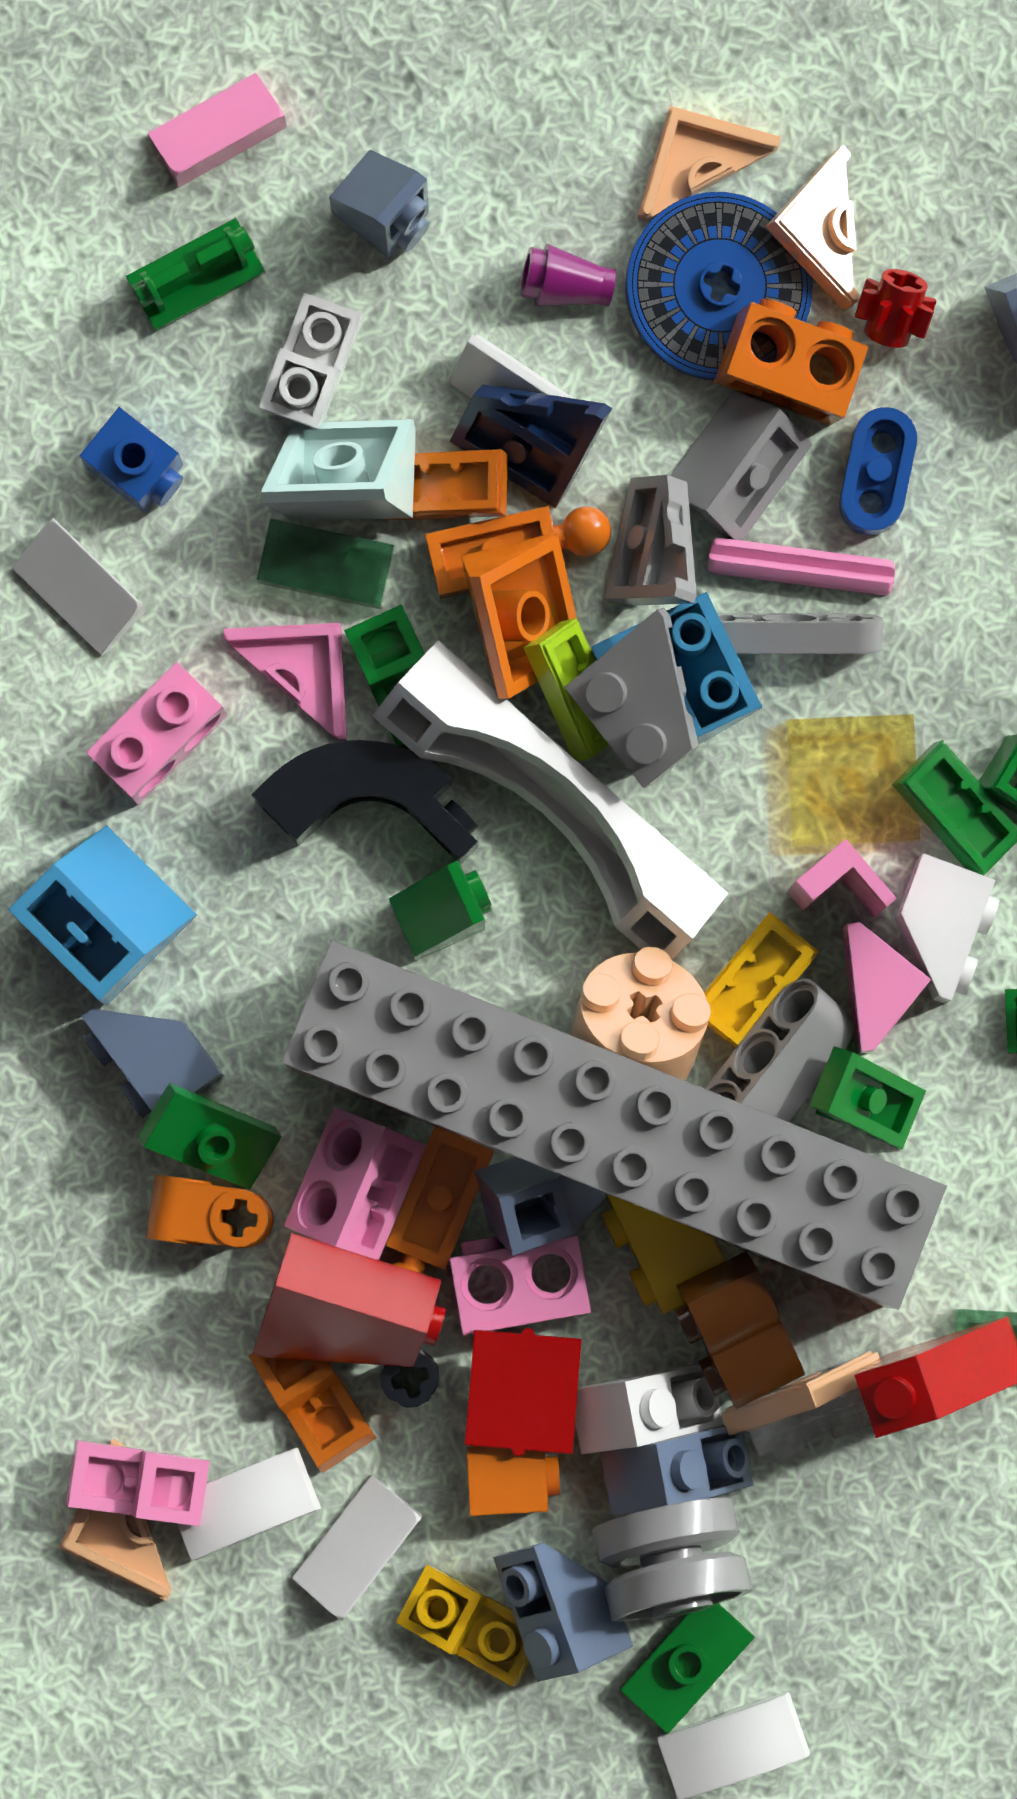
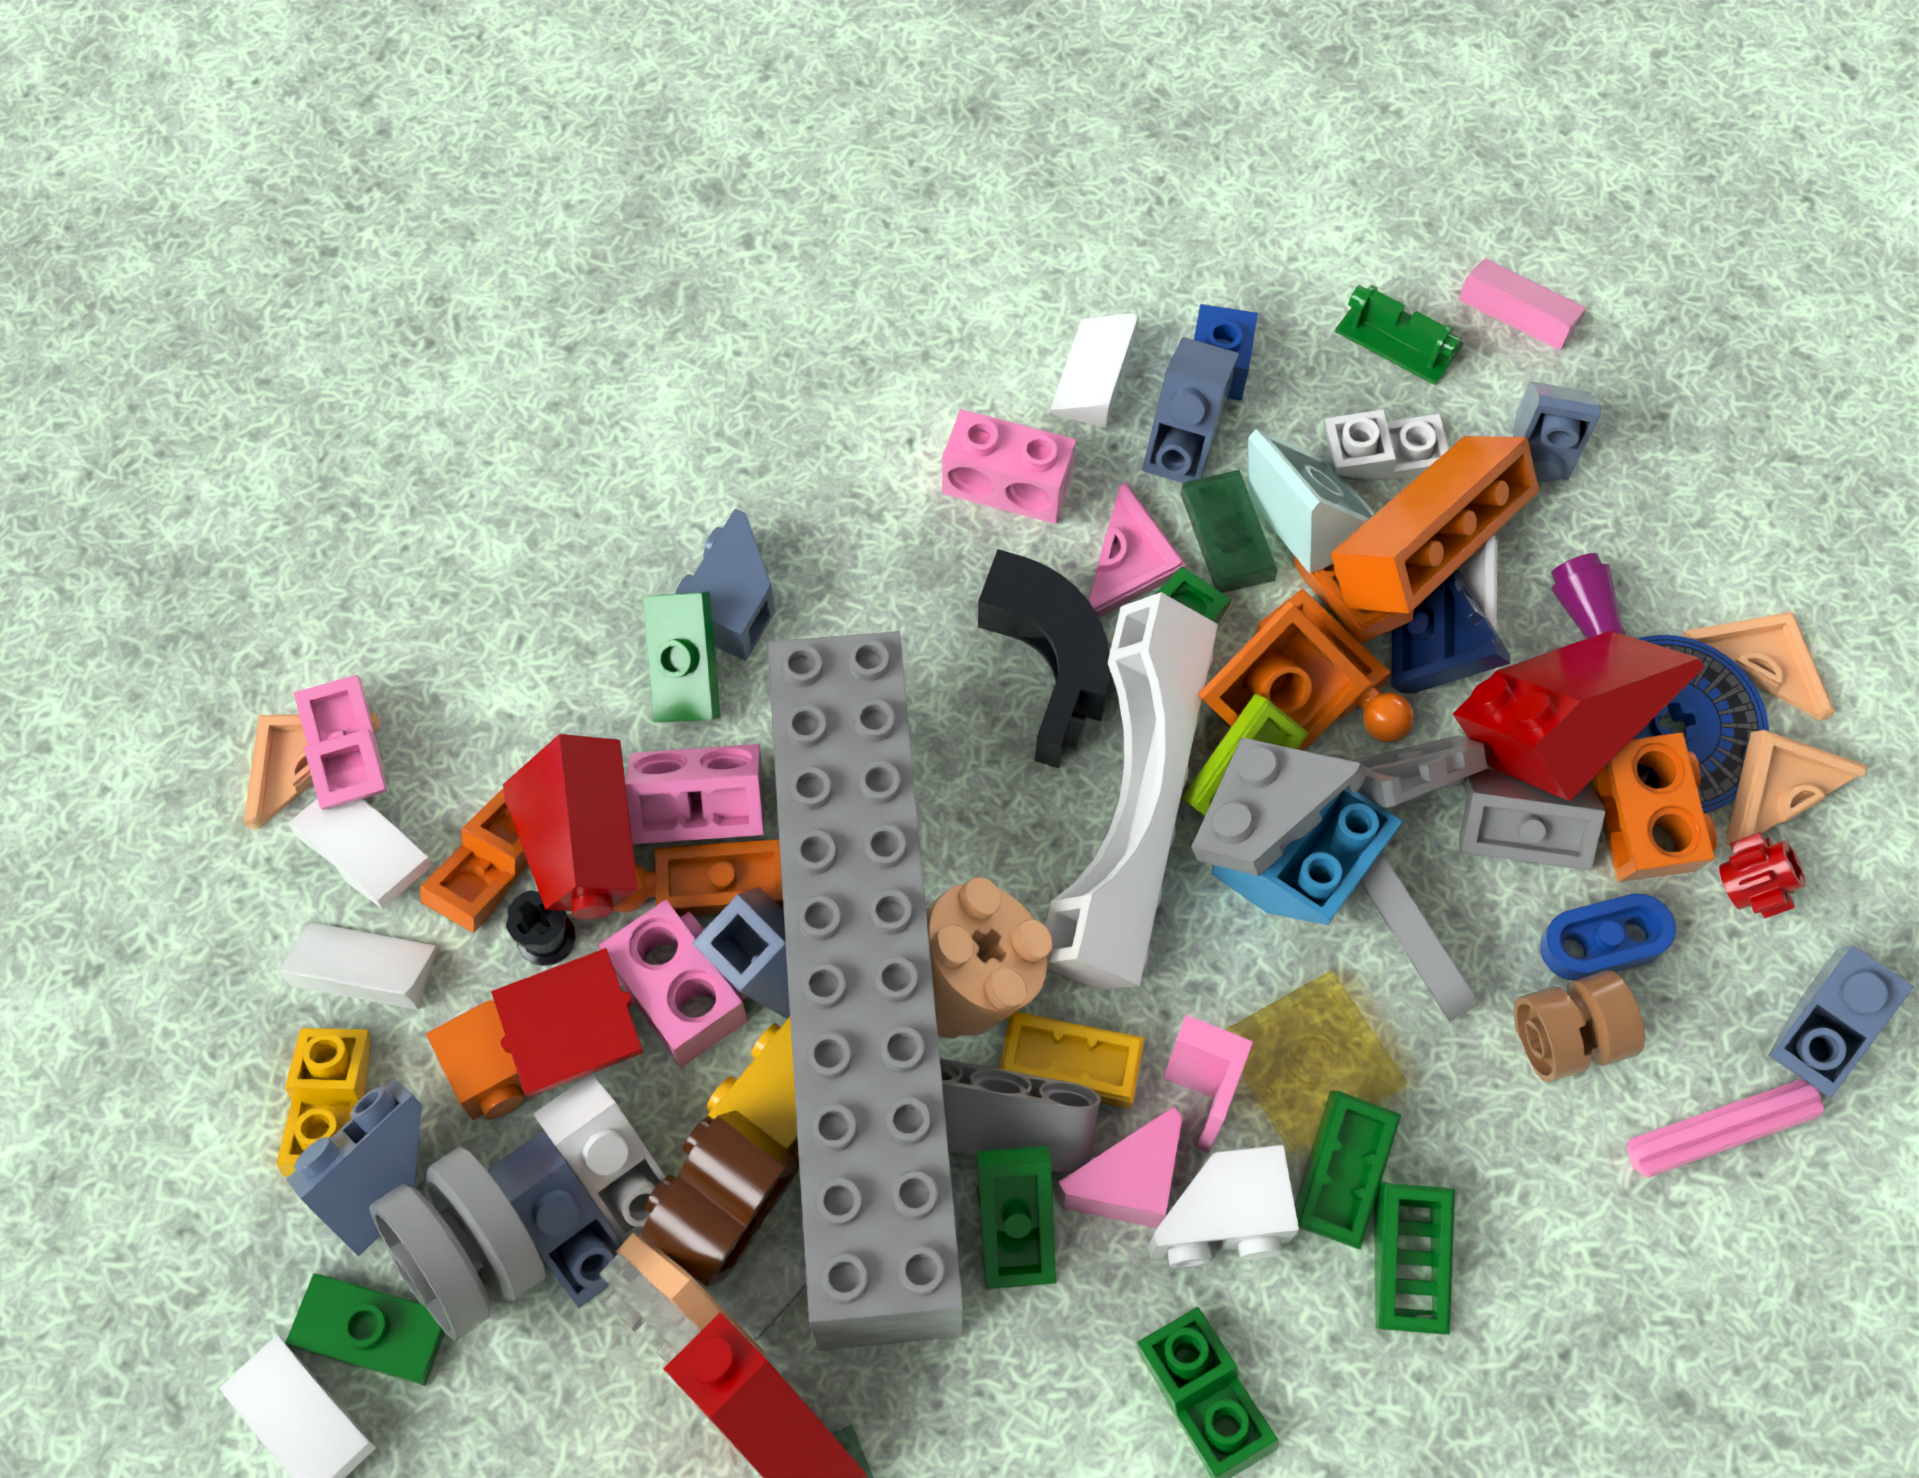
camera: 65 degrees right, 20 degrees down
(102, 913) = (830, 493): dark azure slope -> none
(189, 530) = (1189, 410): none -> sand blue slope
(197, 1212) = (614, 691): orange piece -> none
(437, 382) = (1435, 524): none -> orange brick
(441, 909) = (984, 748): green slope -> none
(675, 371) = (1572, 708): none -> red slope
(801, 566) = (1477, 915): bright pink axle -> none
(944, 541) = (1588, 1023): none -> medium nougat wheel

